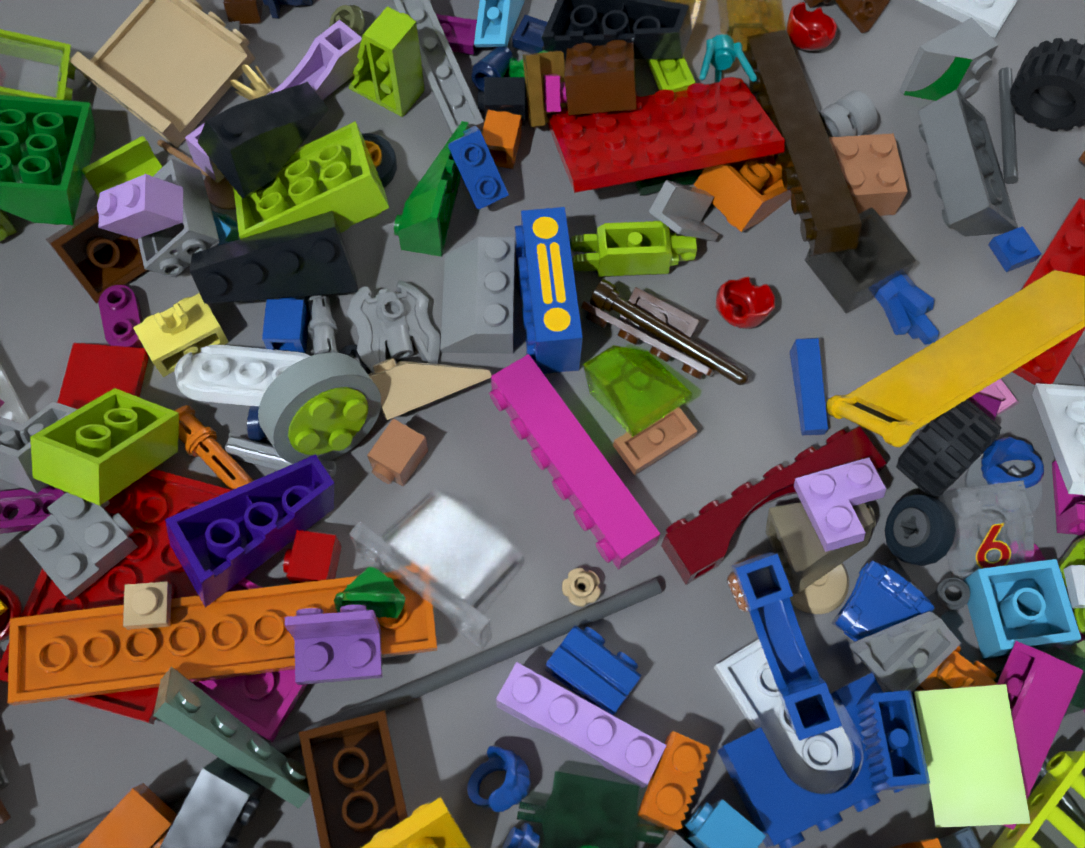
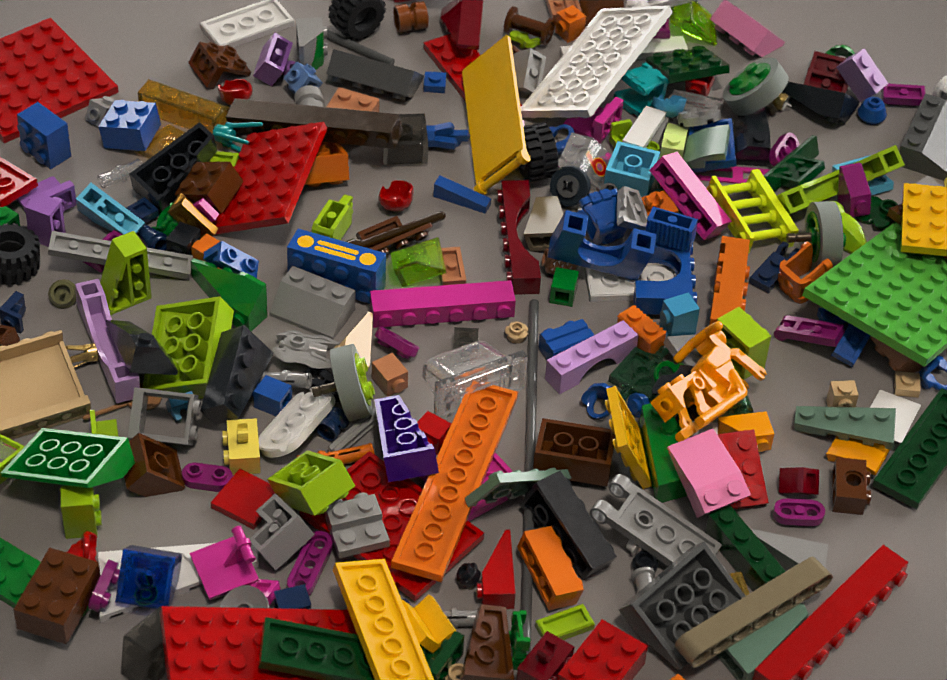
camera: 65 degrees left, 20 degrees down
(64, 735) = (468, 574): none -> black plate
(65, 784) = (498, 581): none -> red slope
(140, 207) = (158, 413): lavender brick -> none
(147, 605) = (422, 496): tan plate -> none
(336, 645) = (496, 422): medium lavender bracket -> none
(375, 592) = (478, 399): green piece -> none
(466, 436) = (404, 347): none -> magenta plate
(522, 523) = (465, 336): none -> clear smoke plate
(682, 209) = (321, 192): light grey panel -> none
(708, 616) = (564, 287): none -> green brick
(830, 498) = (535, 203): lavender plate -> none
(888, 88) = (301, 76): none -> medium blue brick
(896, 40) = (274, 59): none -> medium lavender brick
(972, 756) = (698, 204): yellowish green tile -> none

